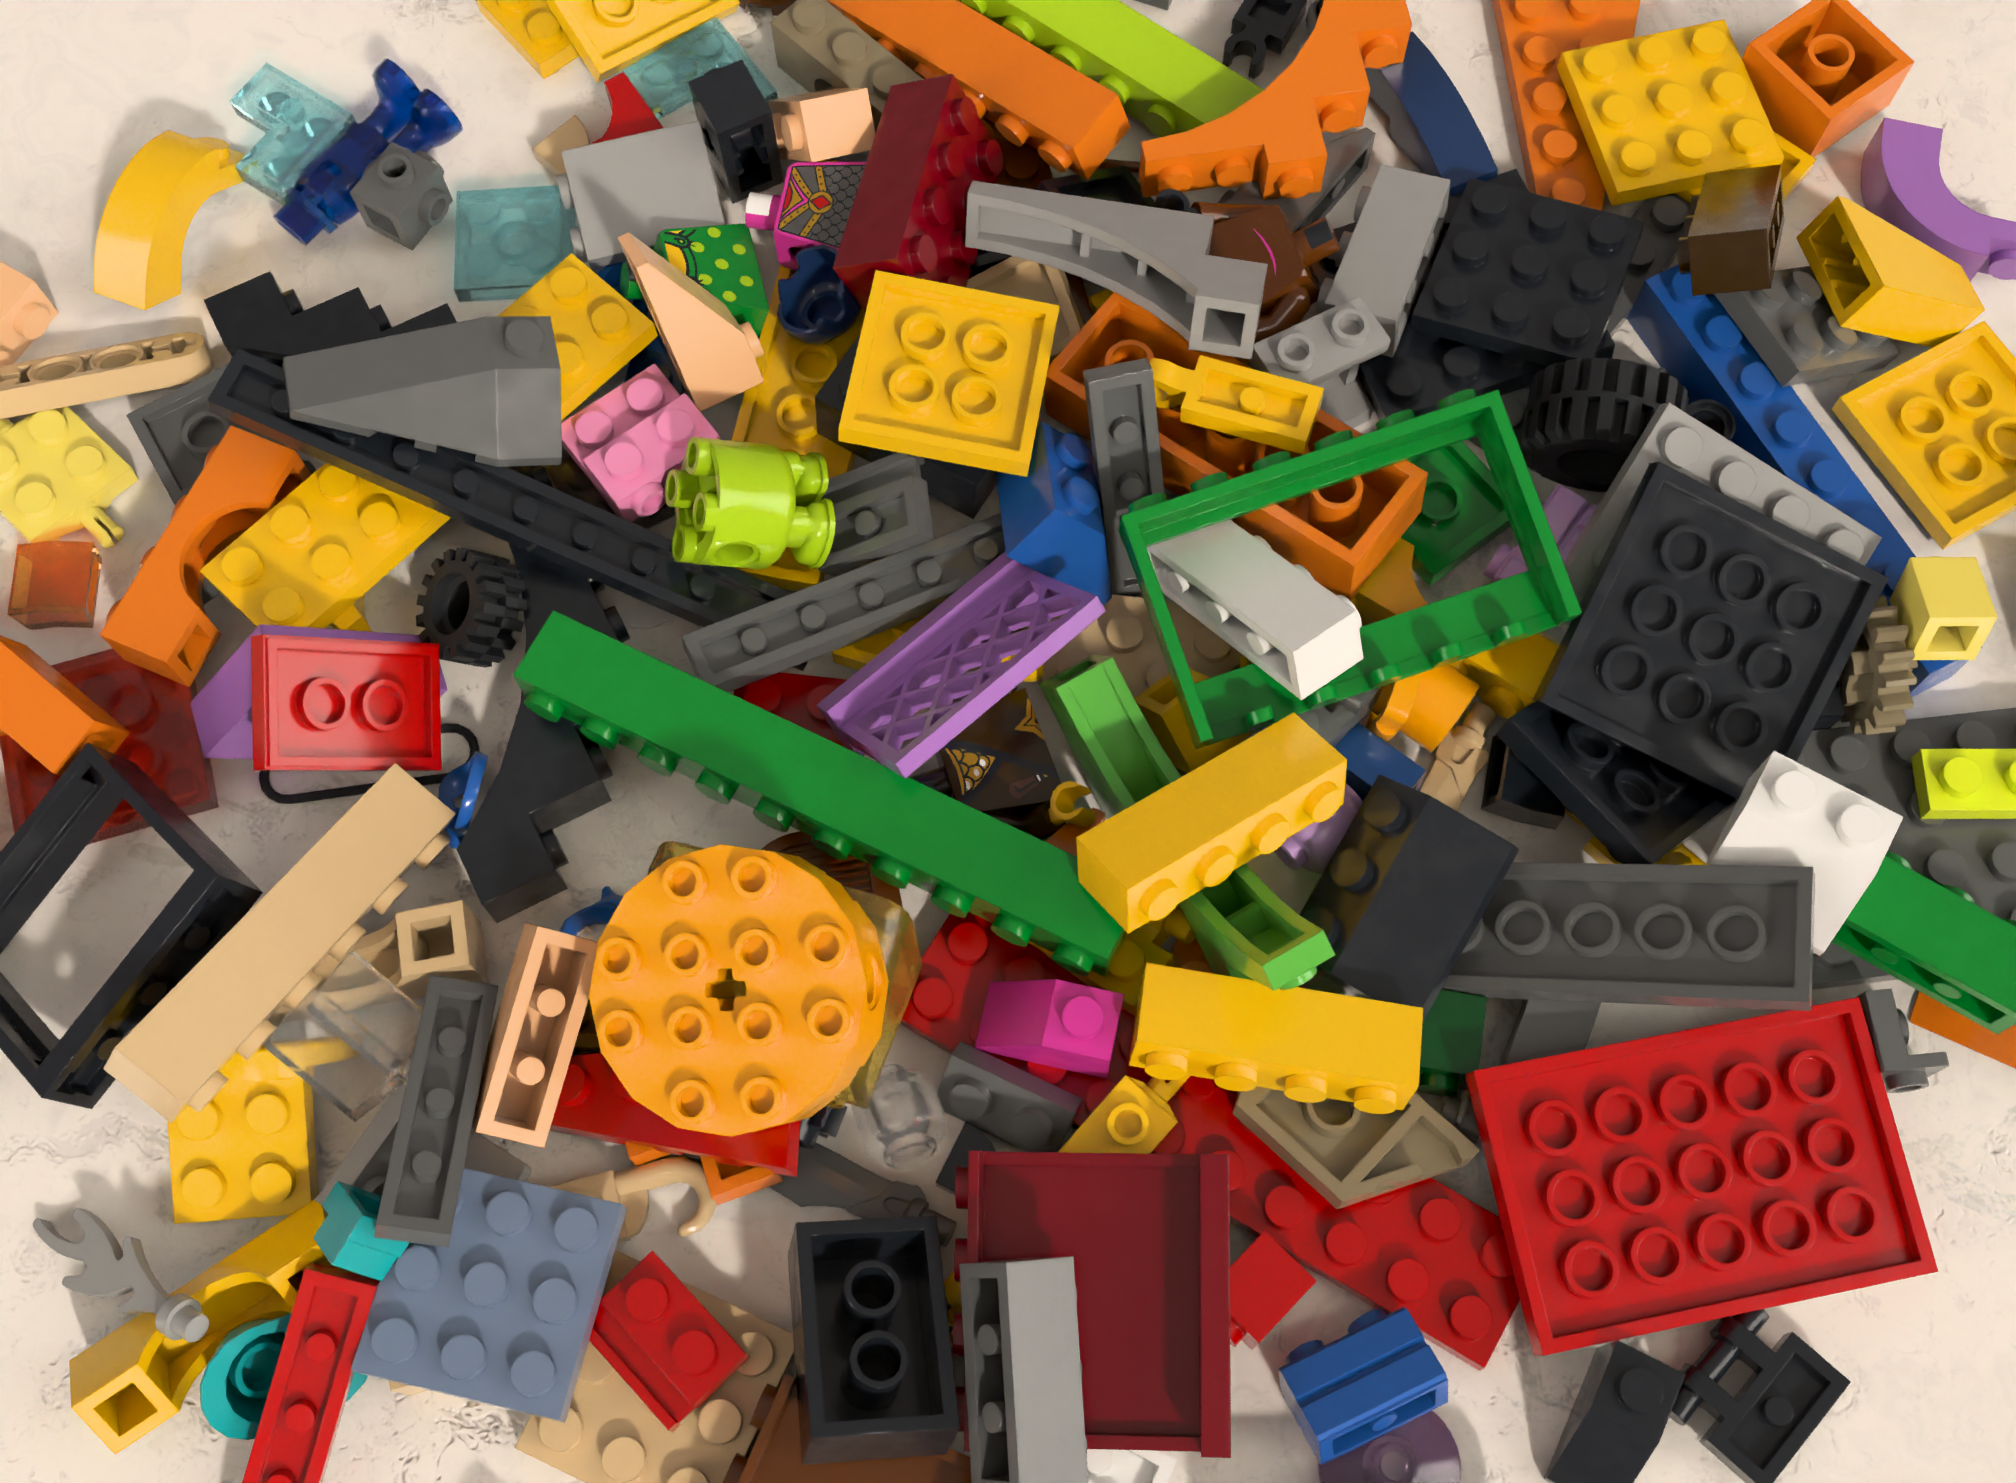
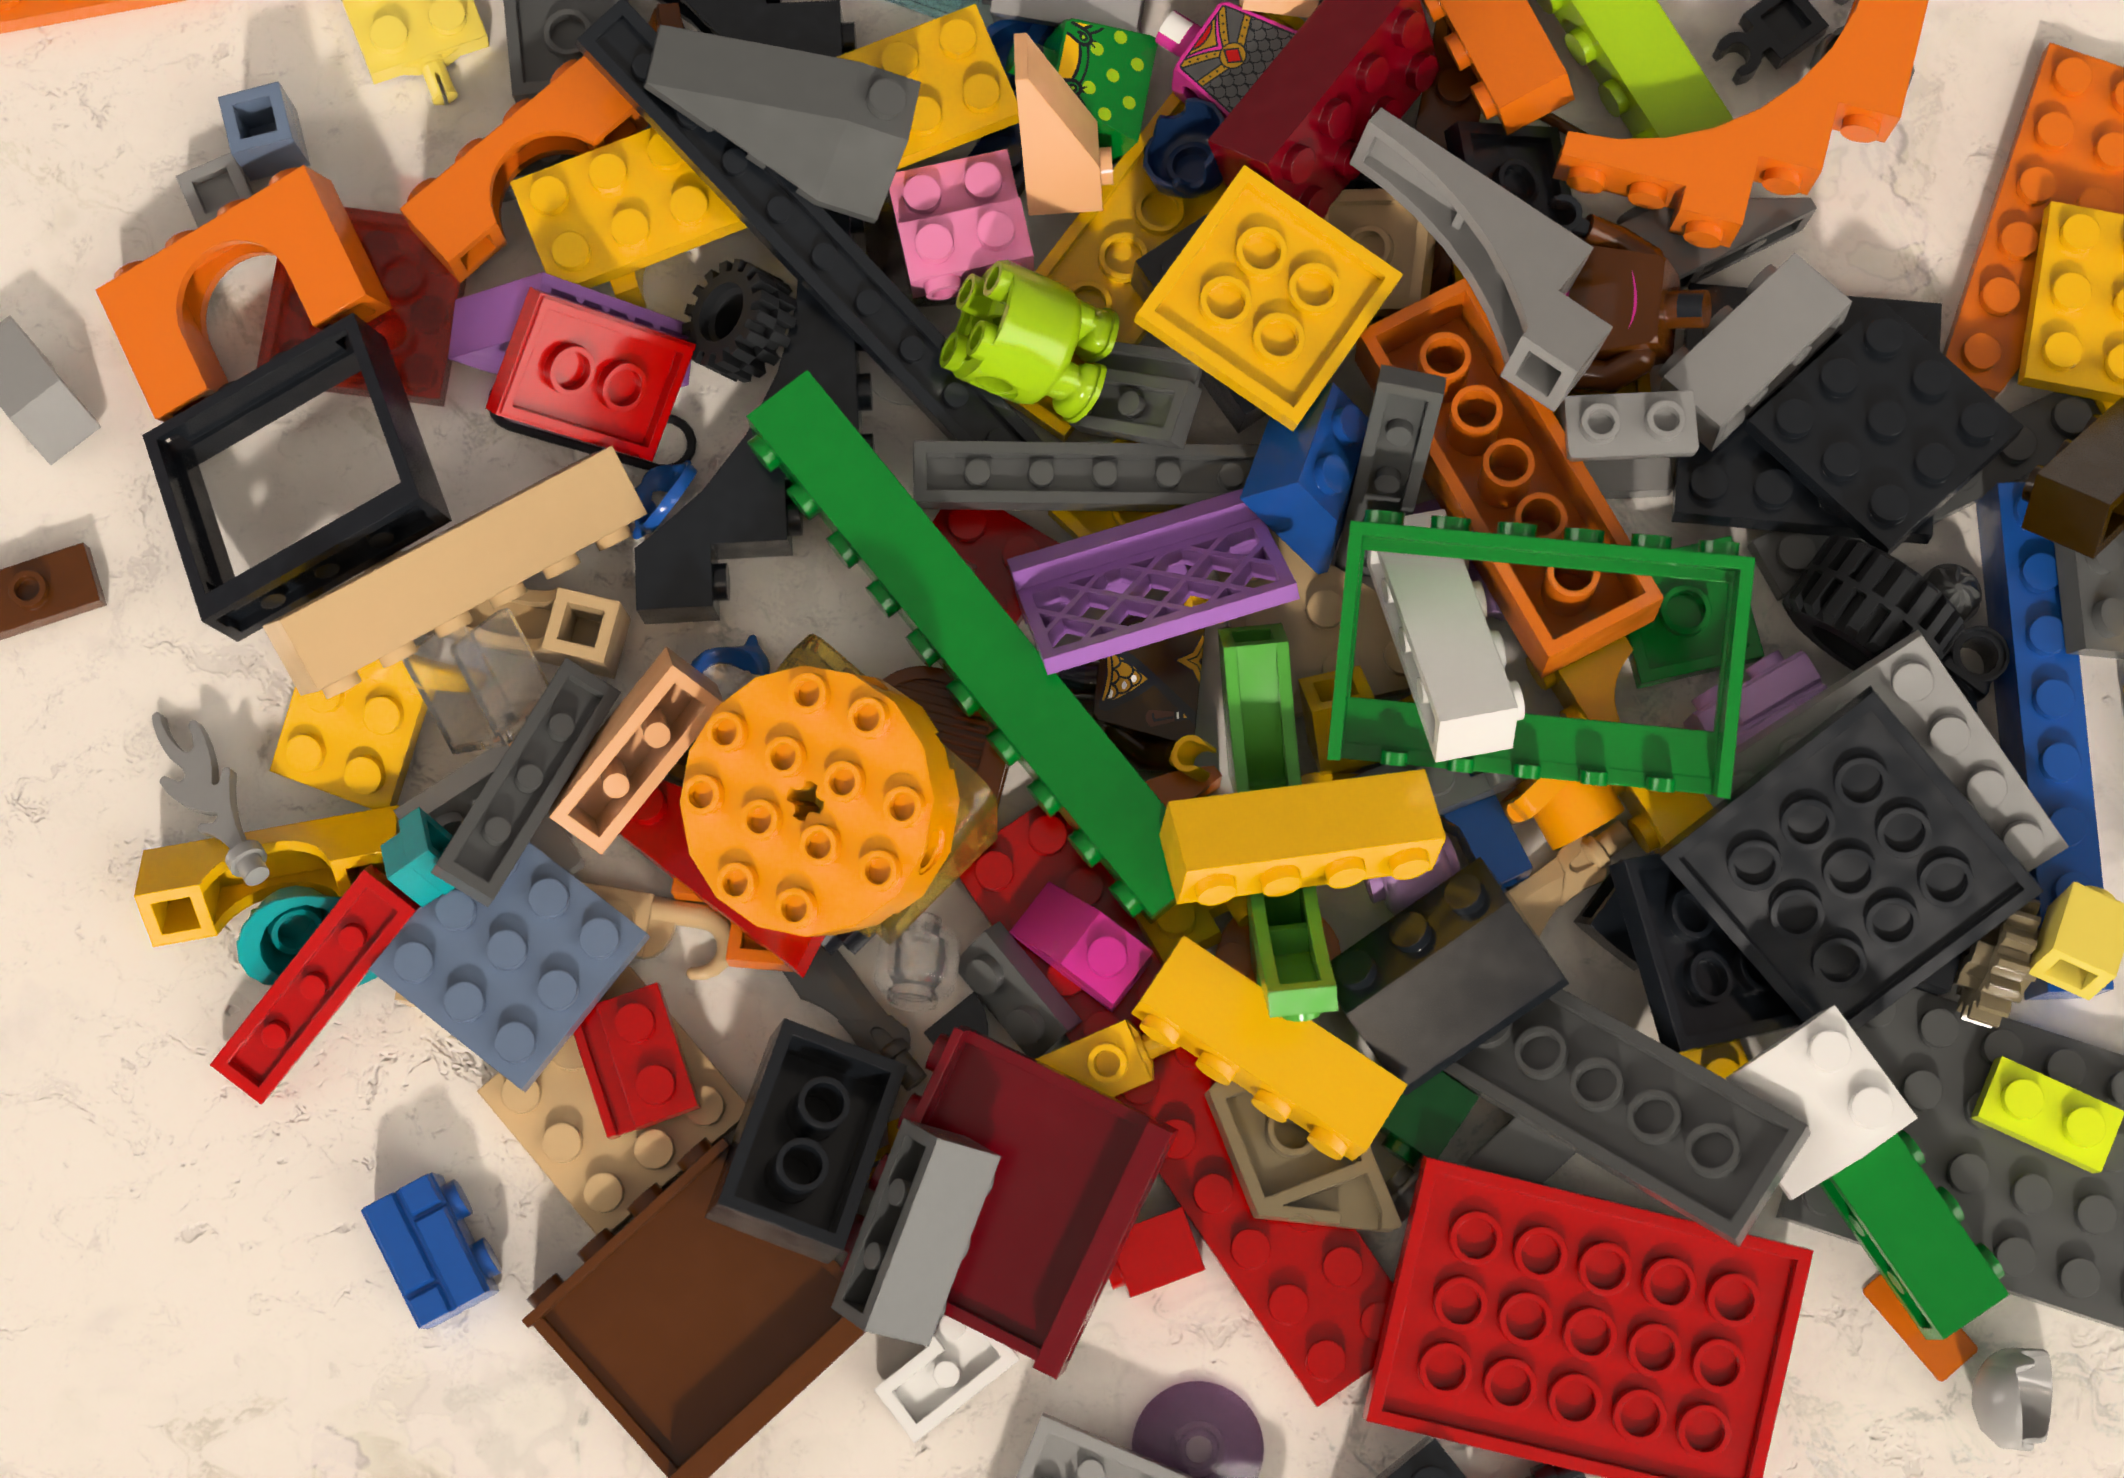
camera: 25 degrees right, 10 degrees up
(55, 584) = (377, 124): clear orange piece -> none
(1240, 401) = (1521, 450): yellow plate -> none
(1362, 1383) = (1204, 1369): blue brick -> none
(1431, 118) = (1885, 215): dark blue slope -> none
(1889, 1038) = (1825, 1293): dark grey bracket -> none

